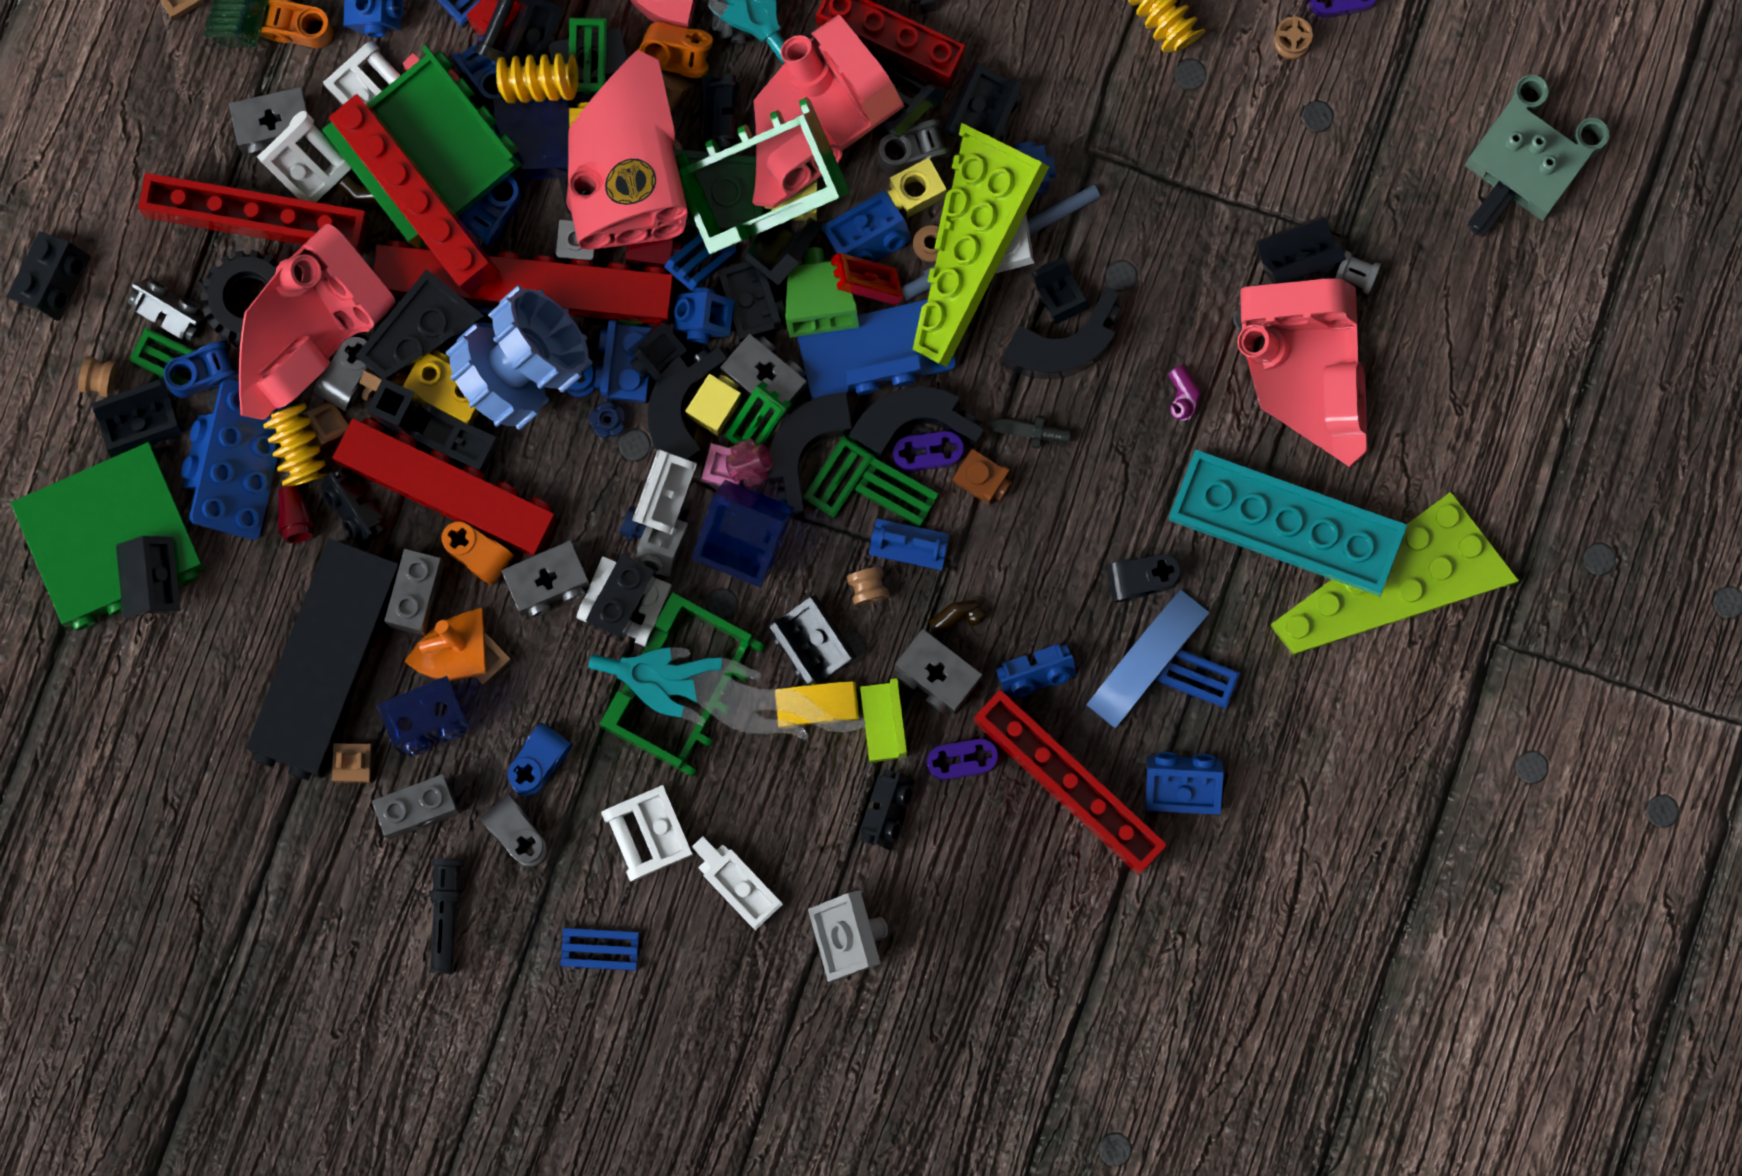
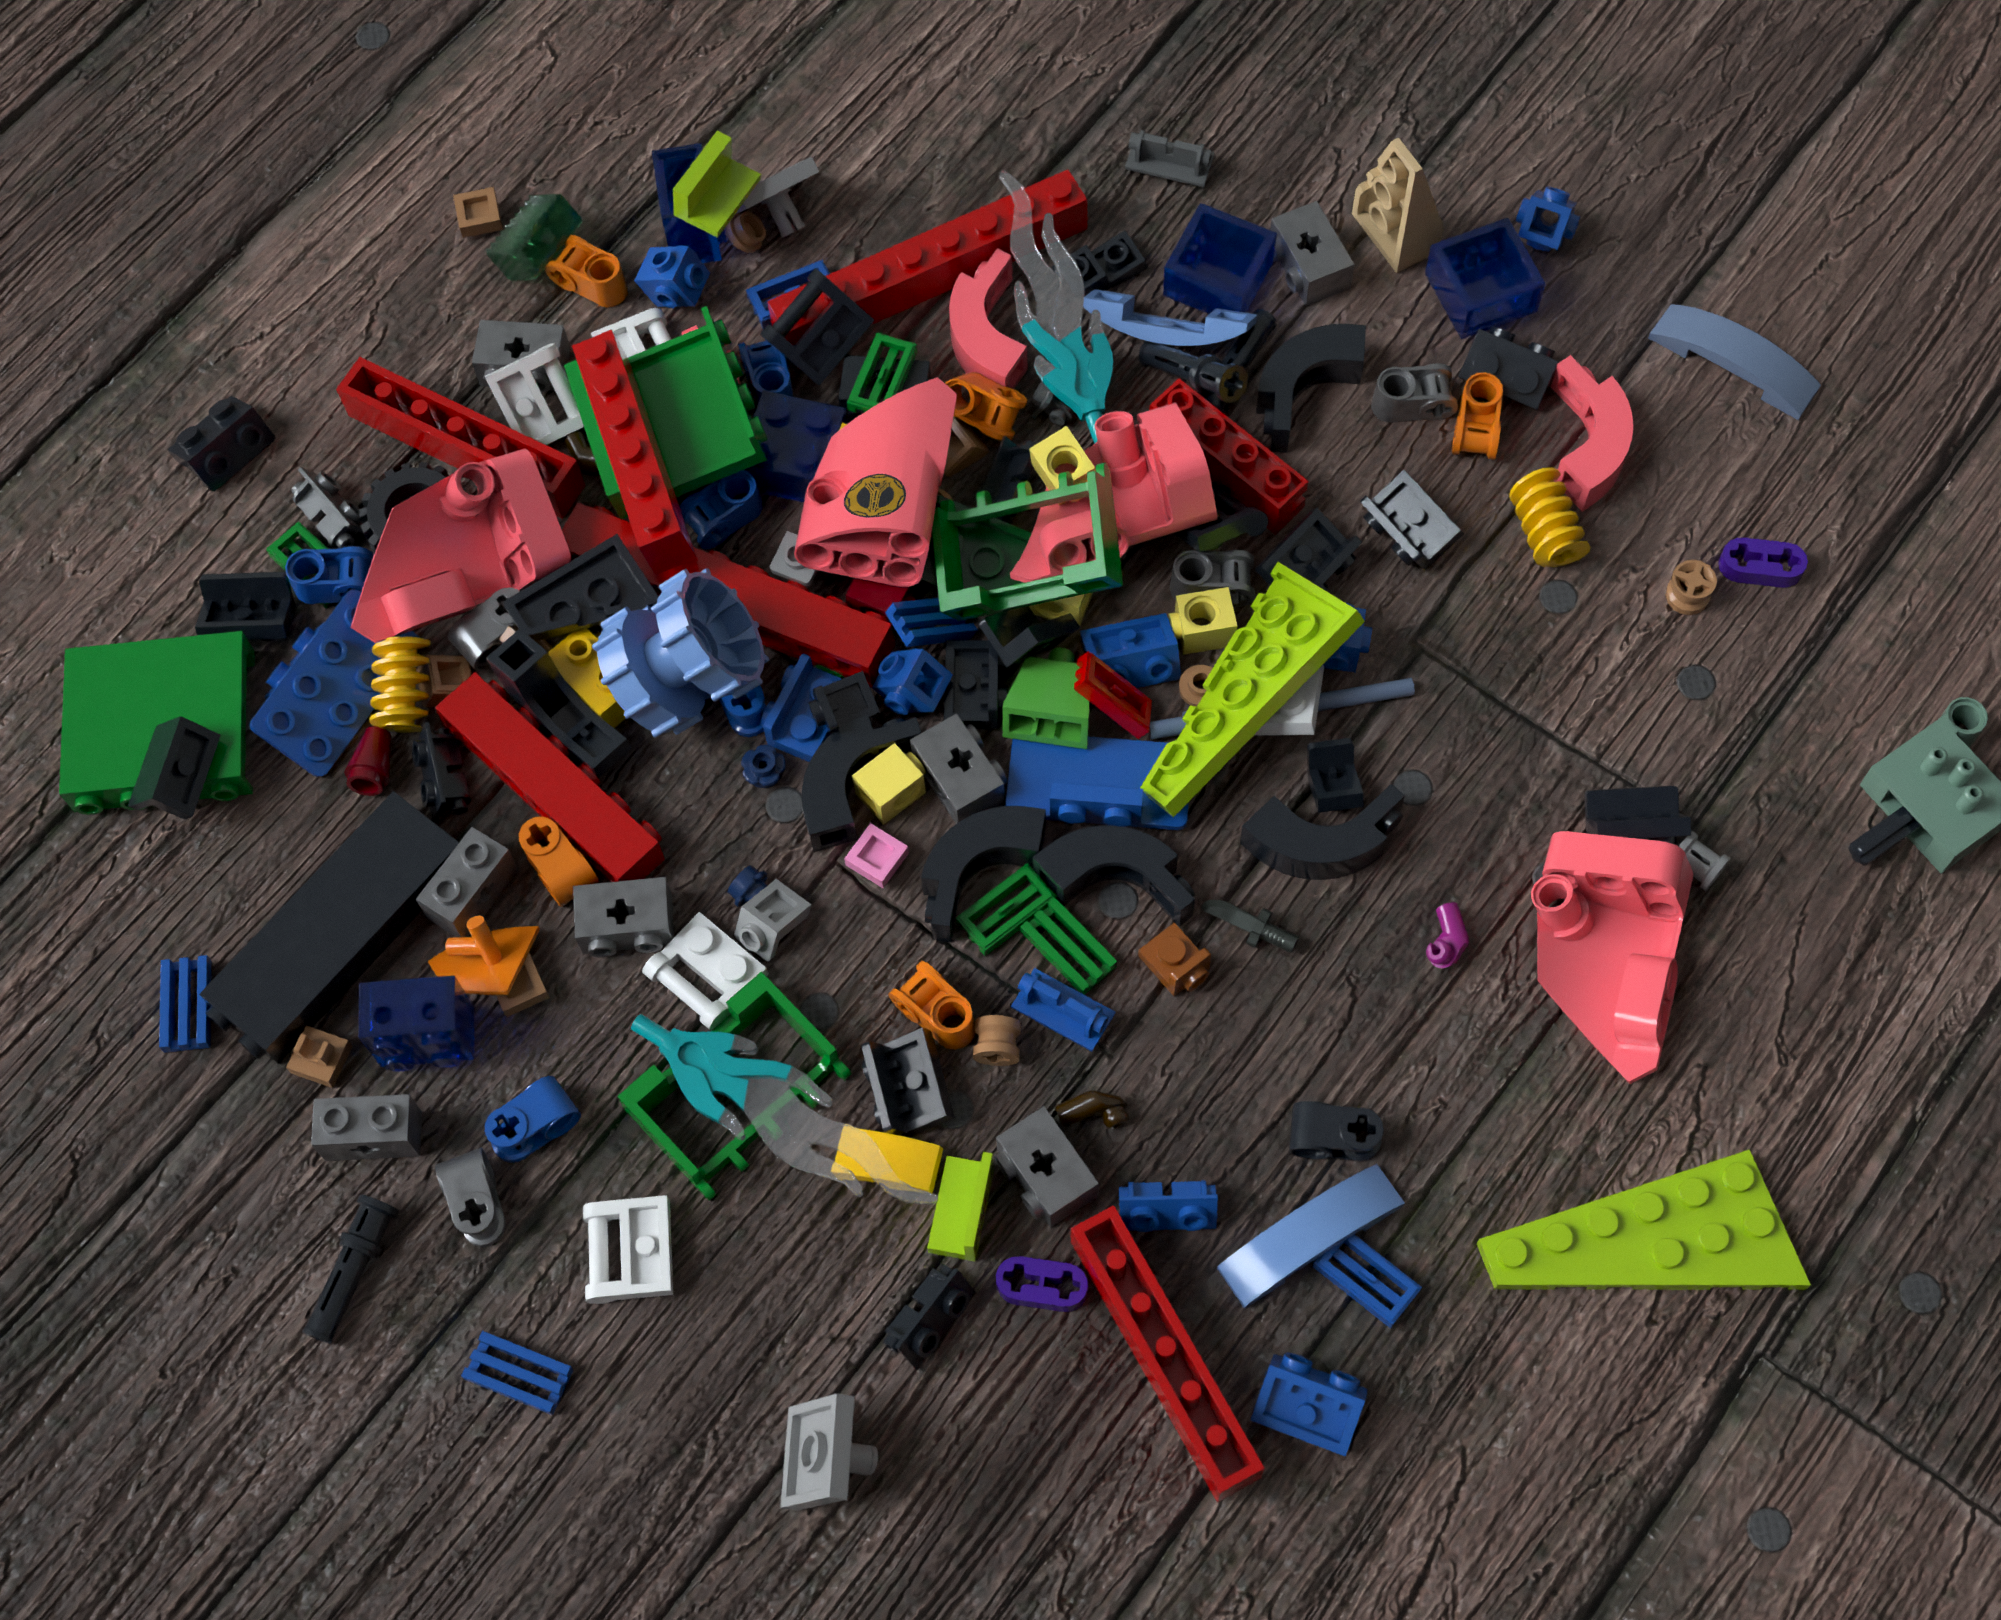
camera: 20 degrees right, 15 degrees down
(97, 376) = (222, 553): medium nougat wheel -> none
(217, 726) = (167, 1004): none -> blue tile
(537, 80) = (816, 375): yellow piece -> none
(621, 598) = (698, 958): black brick -> none
(664, 491) = (793, 853): white hinge -> none
(737, 883) = (712, 1346): white hinge -> none
(742, 533) = (870, 931): clear blue piece -> none
(749, 462) = (904, 852): clear pink gear -> none
(762, 81) = (1057, 450): none -> light yellow brick
(771, 401) = (944, 822): green tile -> none
(809, 573) = (930, 1000): none -> orange piece
(929, 460) = (1122, 901): dark purple beam -> none
(1055, 48) = (1412, 520): none -> bracket
(1288, 523) = (1536, 1123): teal plate -> none

